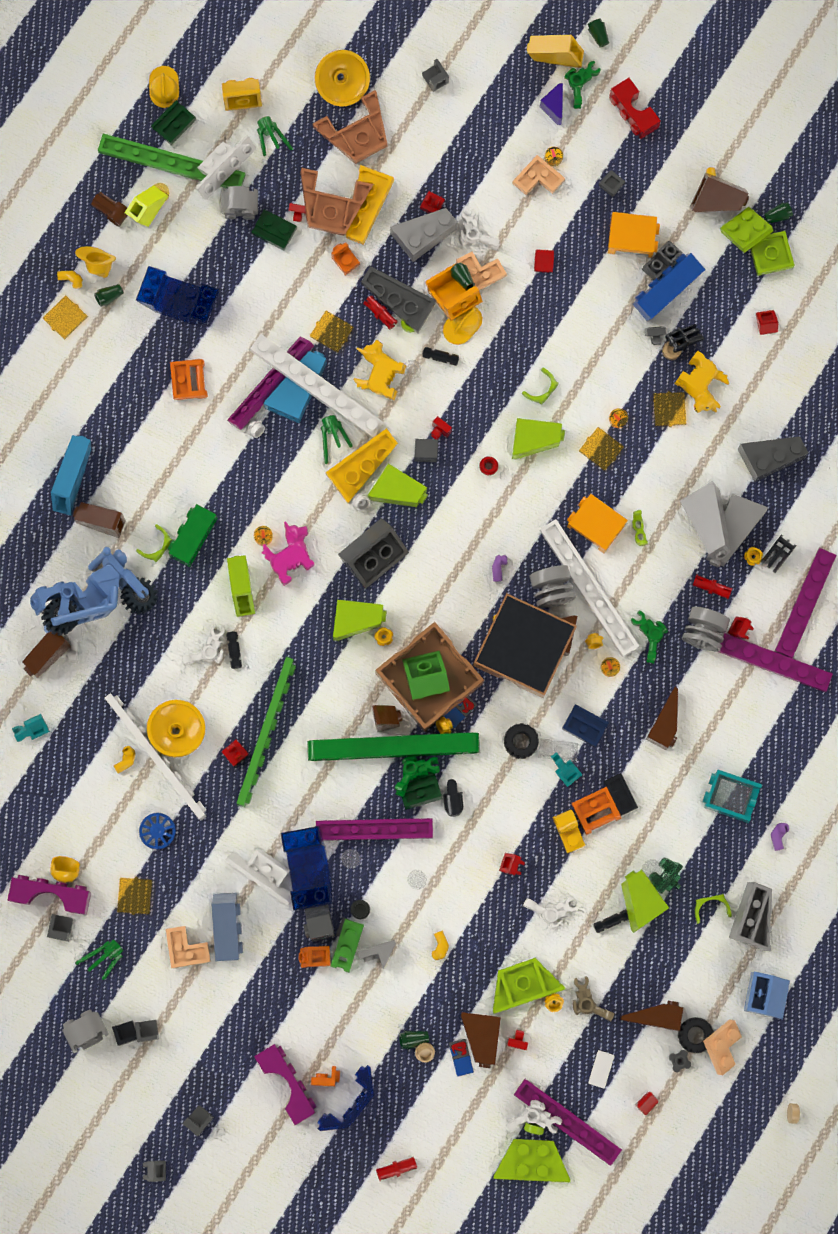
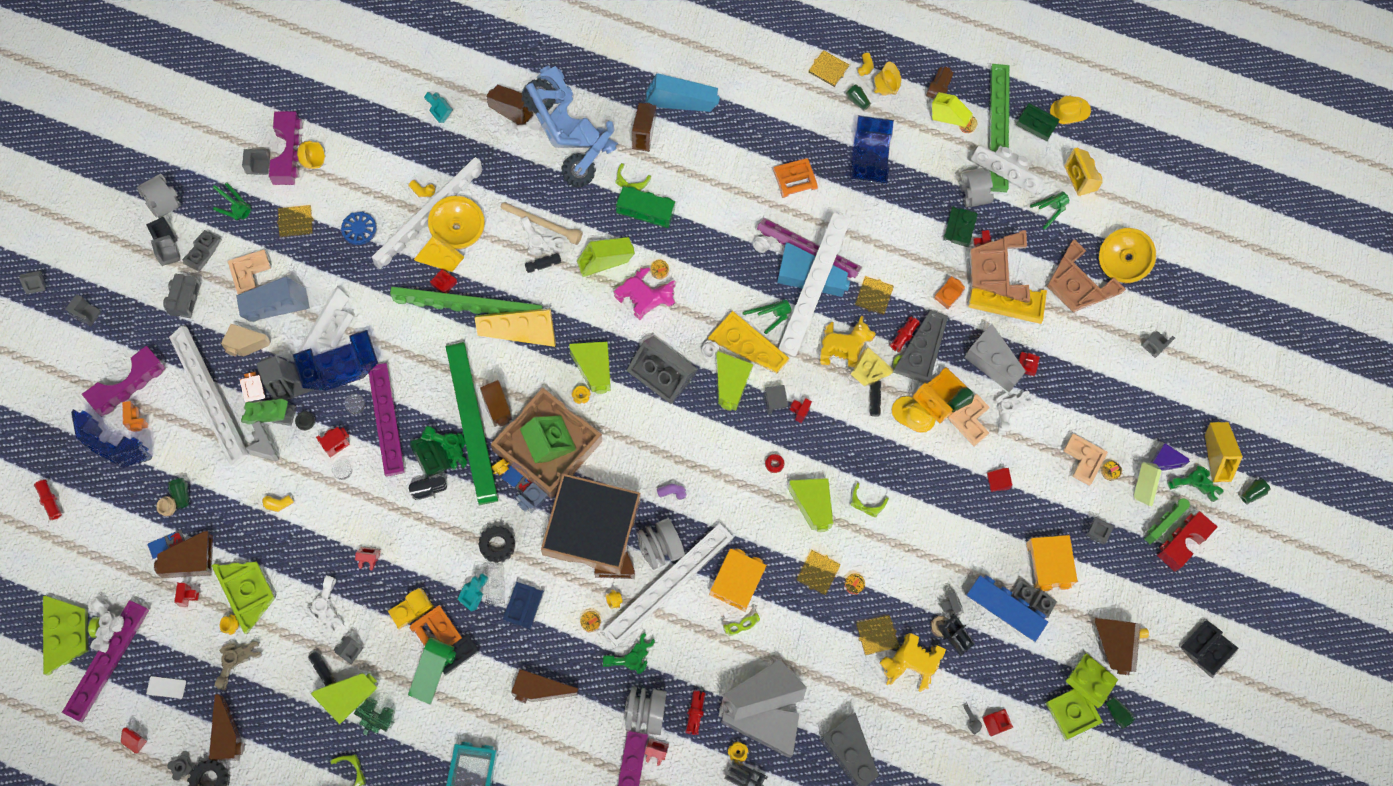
camera: 75 degrees right, 10 degrees down
(151, 995) = (202, 251): none -> dark grey slope
(201, 1018) = (182, 295): none -> dark grey brick
(206, 751) = (439, 254): none -> yellow wing
(209, 614) = (573, 236): none -> tan piece
(264, 961) = (243, 341): none -> tan slope
(302, 681) = (520, 326): none -> yellow wing
(316, 1001) = (208, 396): none -> white plate
(387, 882) = (334, 441): none -> red brick
(412, 353) = (870, 368): none -> light yellow wing
(481, 701) = (531, 498): none -> sand blue bracket
(575, 127) = (1147, 483): none -> yellowish green slope
(598, 892) = (348, 649): none -> dark grey tile
(612, 119) = (1167, 520): none -> bright green plate
(632, 818) = (430, 668): none -> door
(735, 118) = (1209, 648): none -> black slope
(766, 341) = (975, 725): none -> dark grey hand

